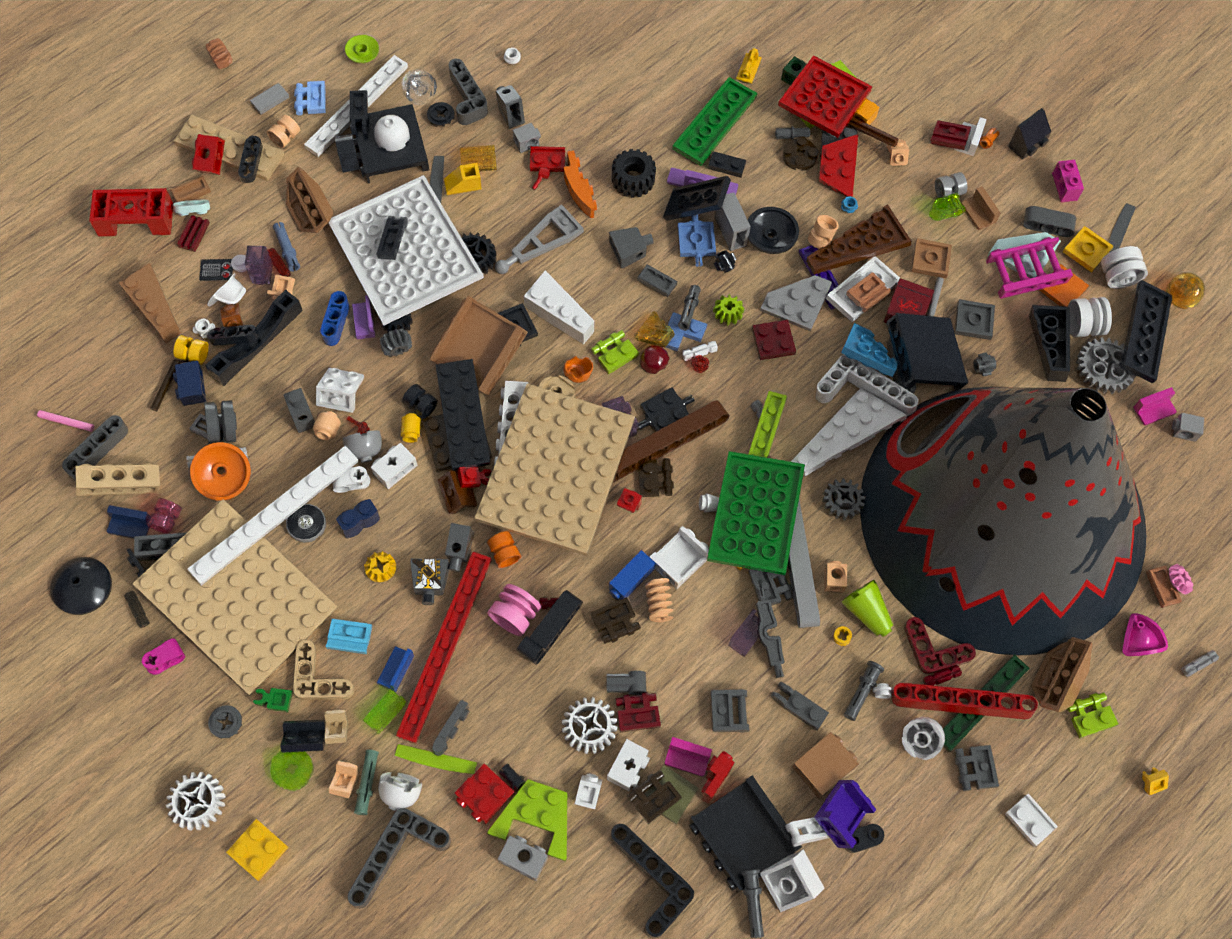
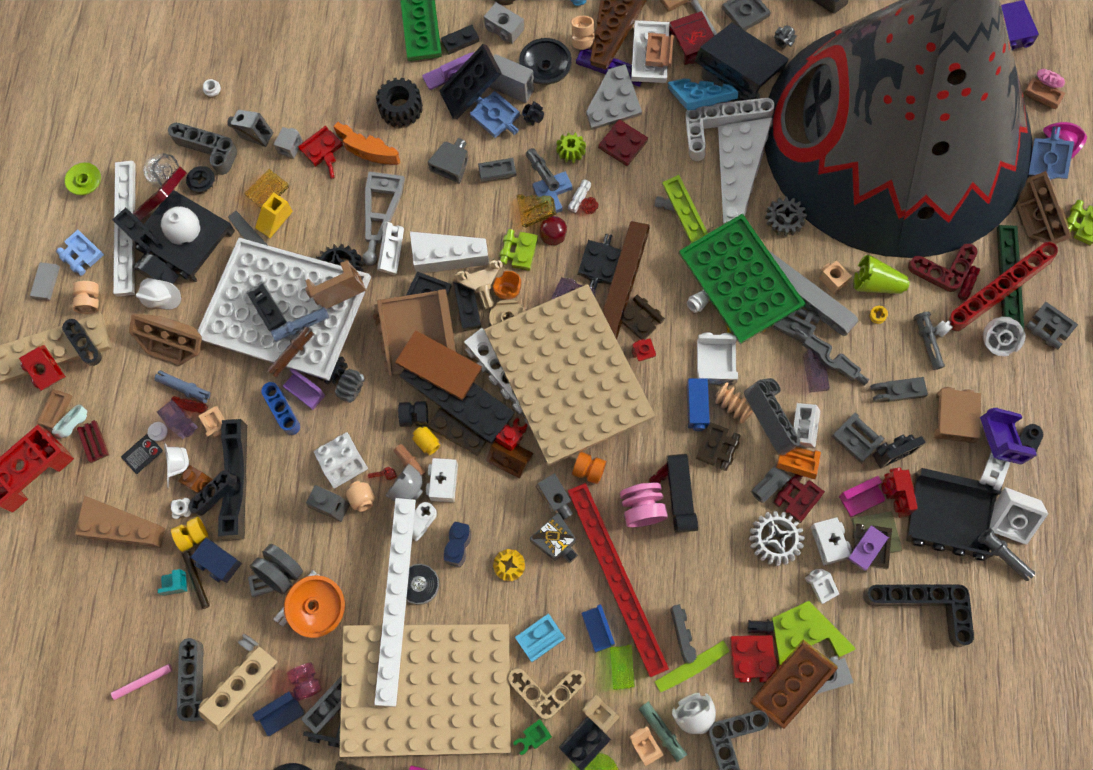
camera: 35 degrees left, 5 degrees up
(149, 374) = (173, 583): none -> teal panel
(155, 457) = (247, 642): none -> light grey bush
(332, 169) = (158, 294): none -> white piece
(376, 282) = (290, 352): none -> reddish brown pin
(384, 428) = (406, 458): none -> nougat axle
(393, 266) = (293, 327): none -> sand blue pin
(402, 100) = (162, 193): none -> dark red beam
(448, 264) = (338, 288): none -> medium nougat panel
(468, 380) = (438, 365): none -> dark orange tile
(490, 836) = (793, 684): none -> dark orange tile
(522, 272) = (390, 248): none -> white plate
(538, 356) = (467, 307): none -> black plate
(560, 349) = (480, 281): none -> tan axle
(647, 793) = (867, 548): none -> medium lavender plate
(661, 686) = (800, 462): none -> orange plate
(673, 630) = (771, 416): none -> dark grey beam
(695, 664) = (806, 424): none -> white brick
(747, 746) = (898, 450): none -> black plate
(771, 169) = (512, 24): none -> light grey brick
(1113, 639) = (1051, 156): none -> medium blue plate
(1191, 511) = (1019, 24): none -> dark purple panel

